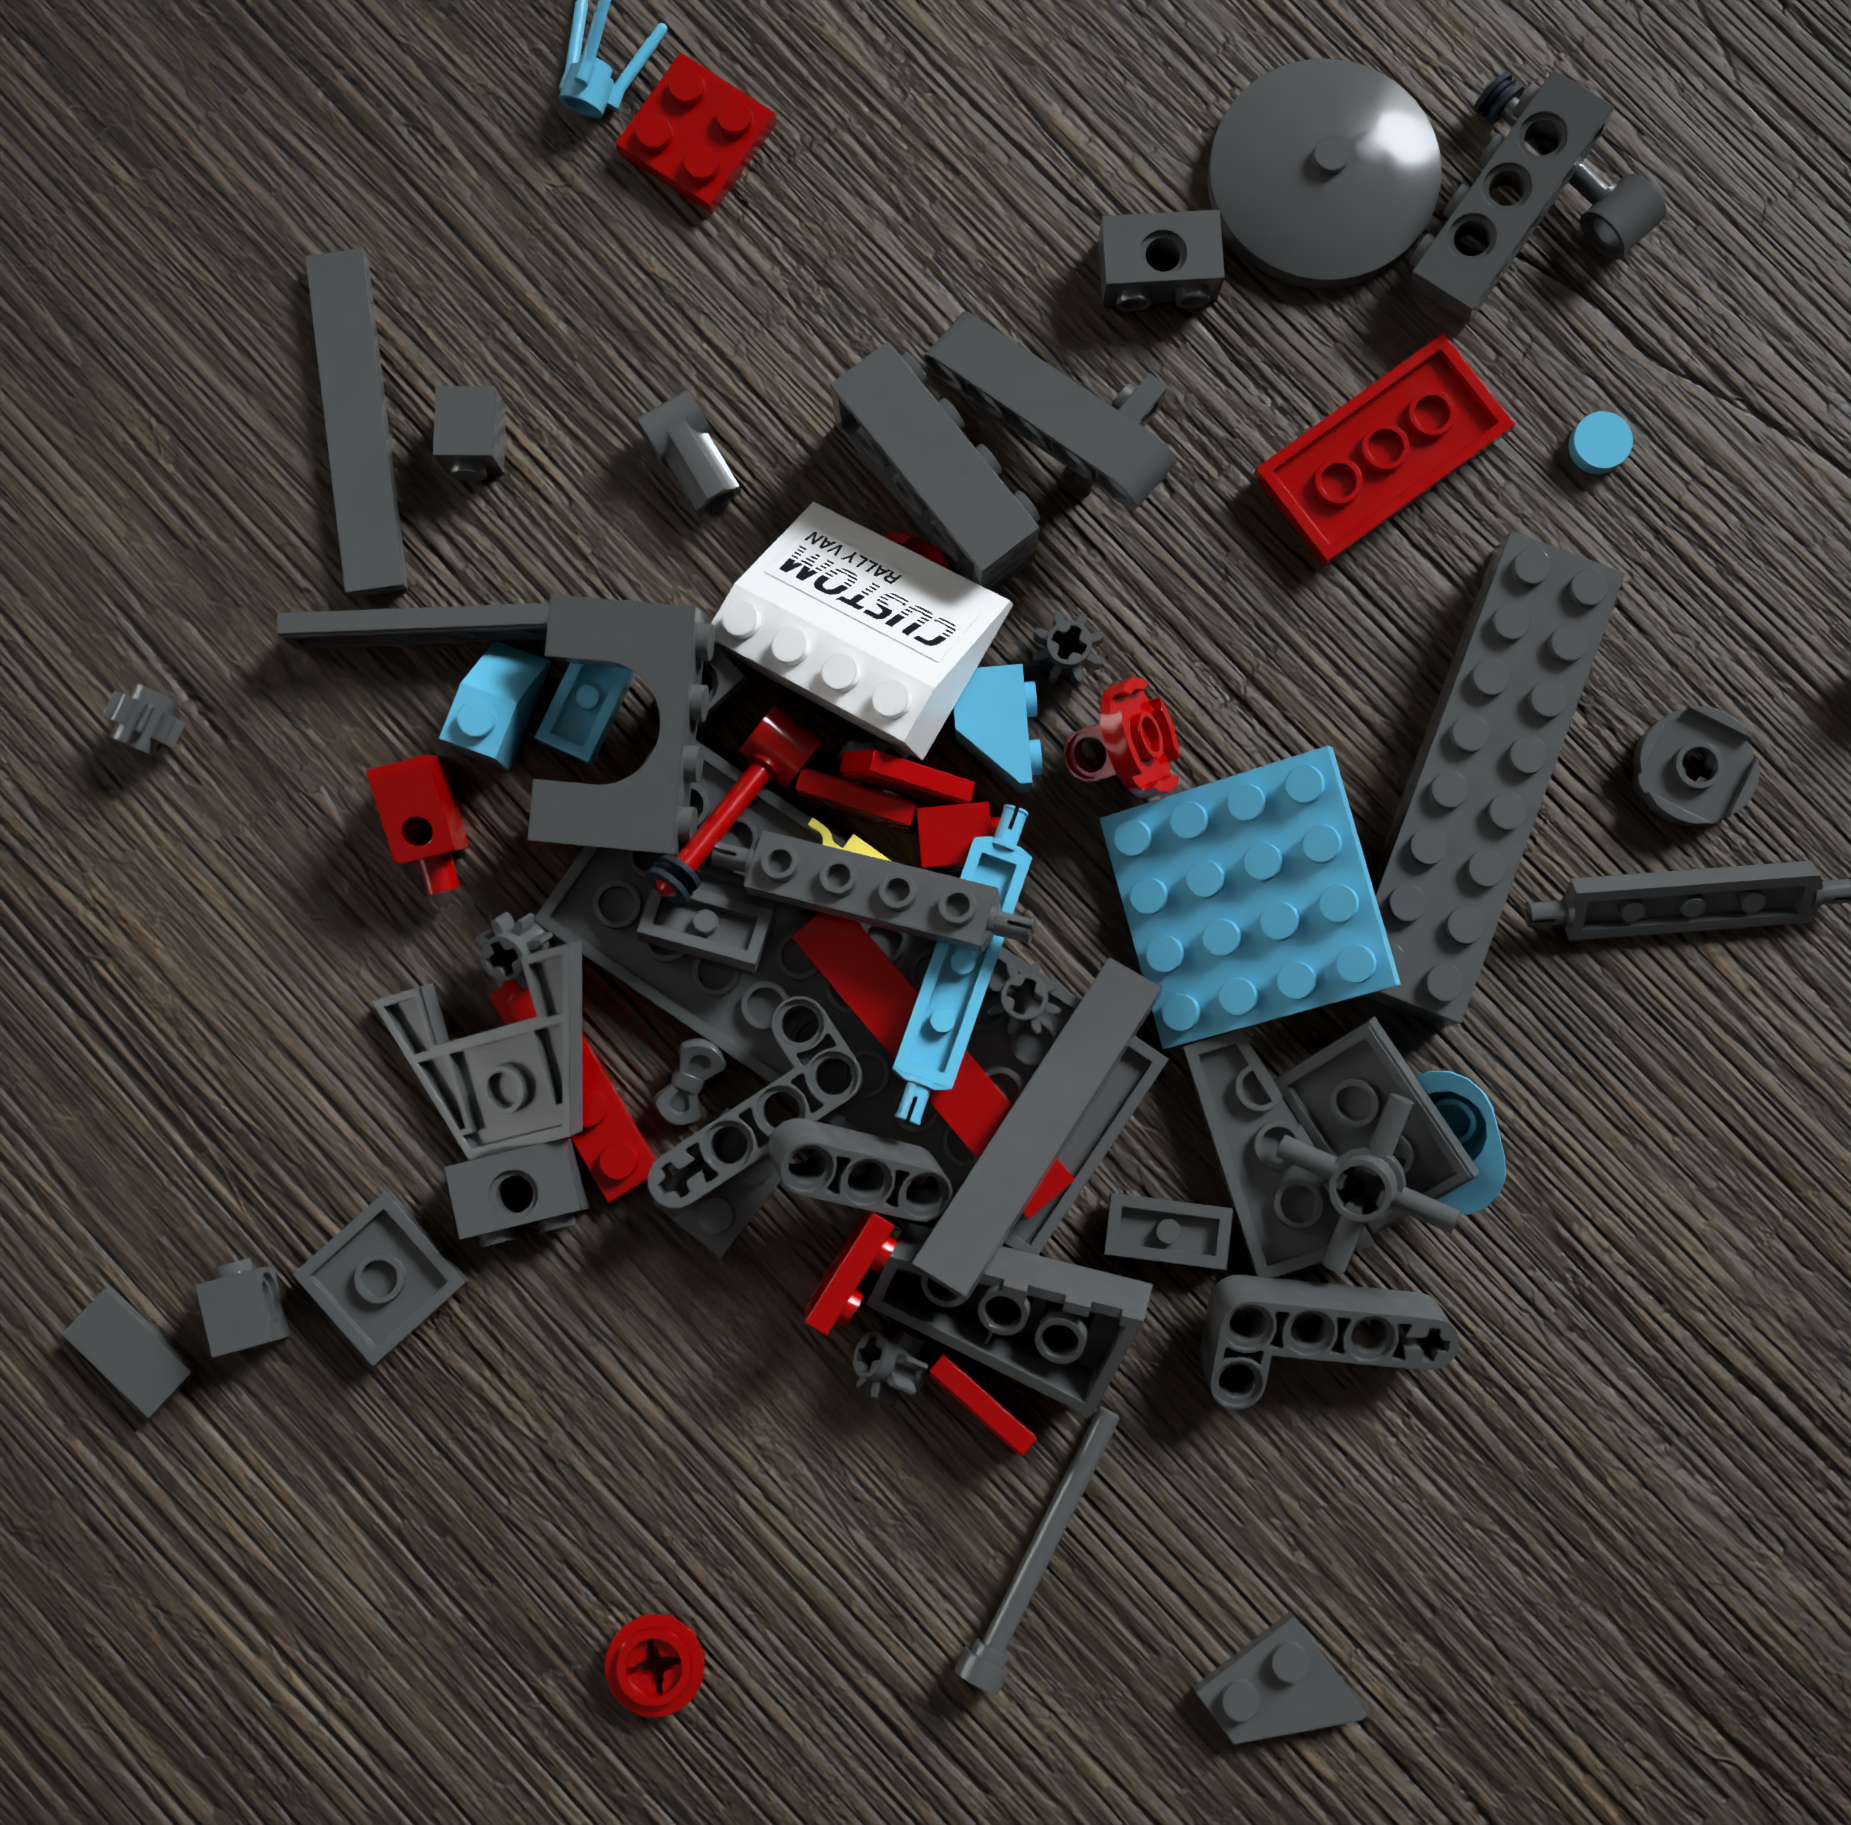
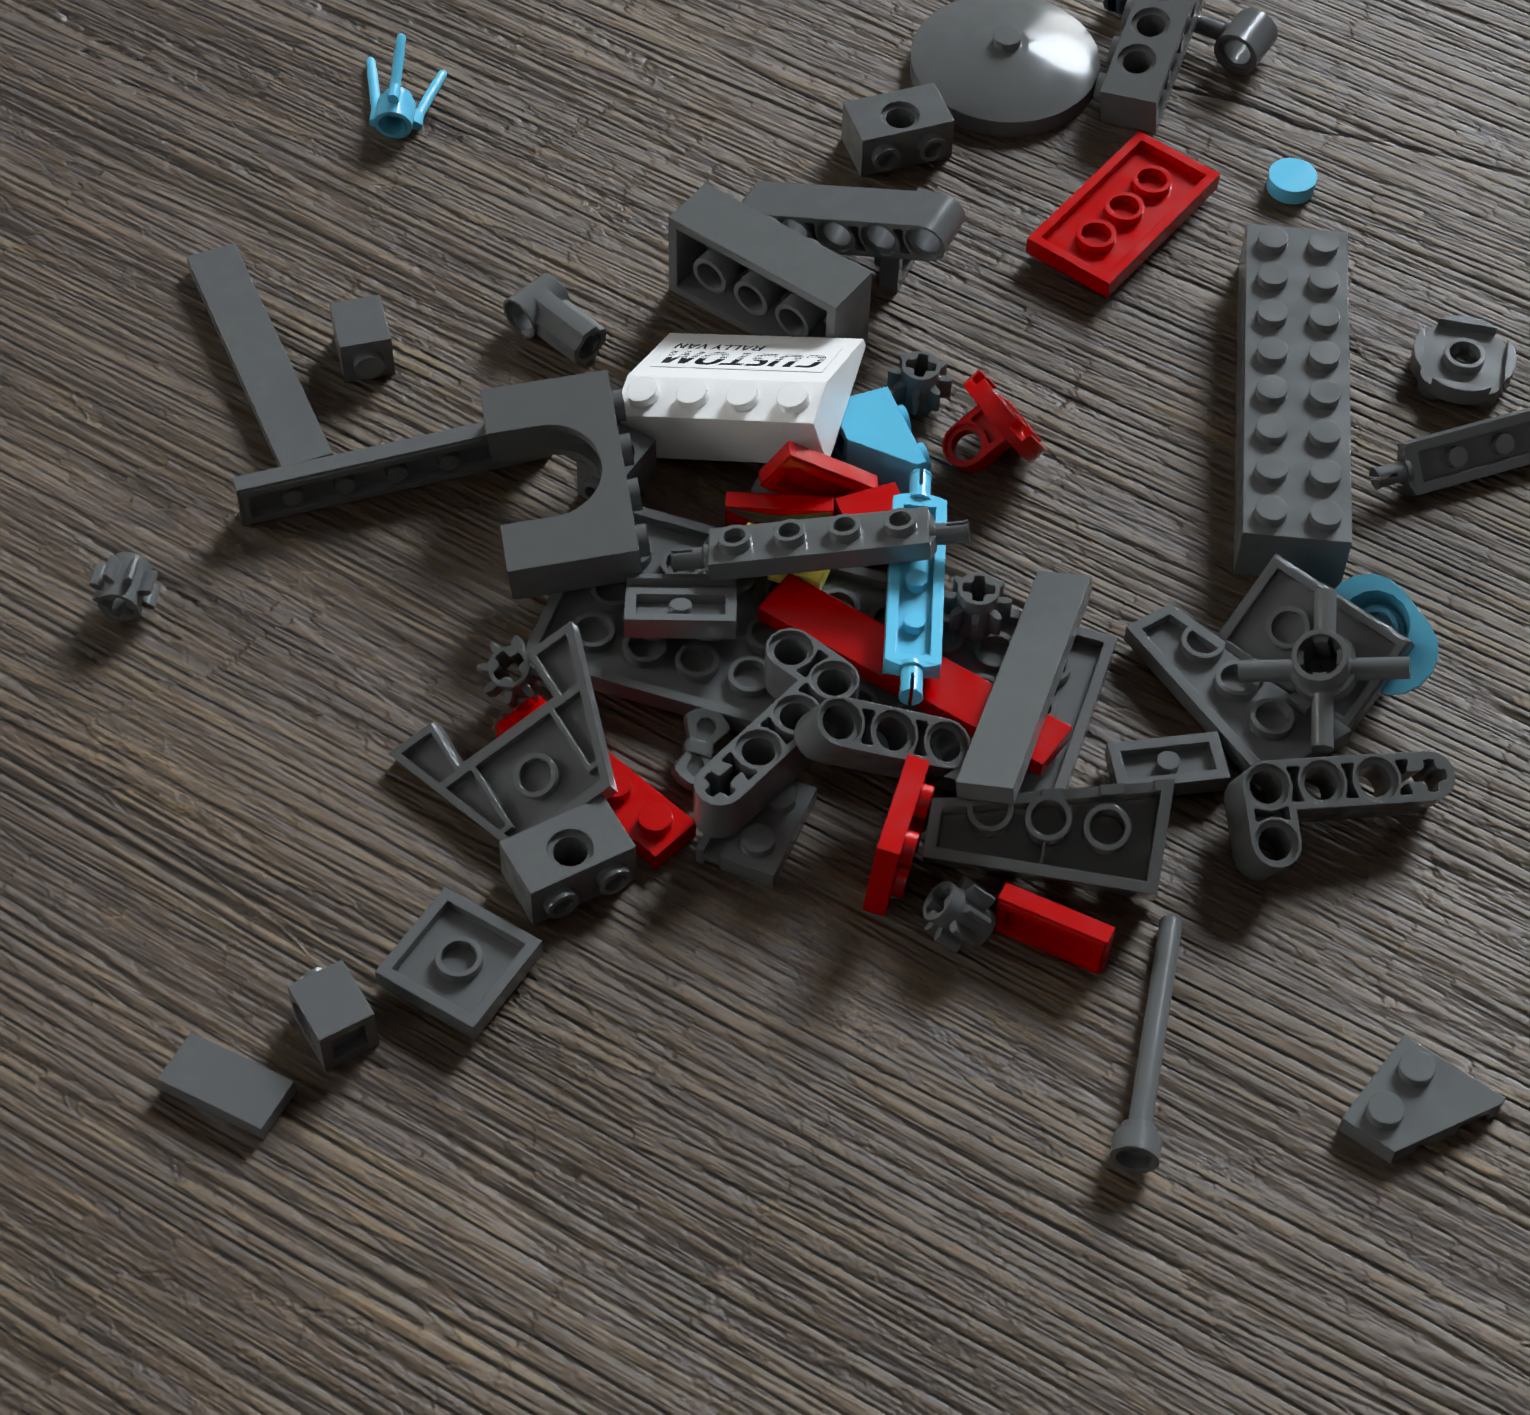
camera: 20 degrees left, 30 degrees down
(407, 796) = (399, 593): red torso -> none
(495, 705) = (438, 525): medium azure slope -> none
(584, 710) = (519, 494): medium azure plate -> none
(637, 1688) = (831, 1200): red gear -> none
(696, 133) = (492, 128): red plate -> none
(775, 753) = (693, 495): red piece -> none
(1250, 898) = (1140, 502): medium azure plate -> none

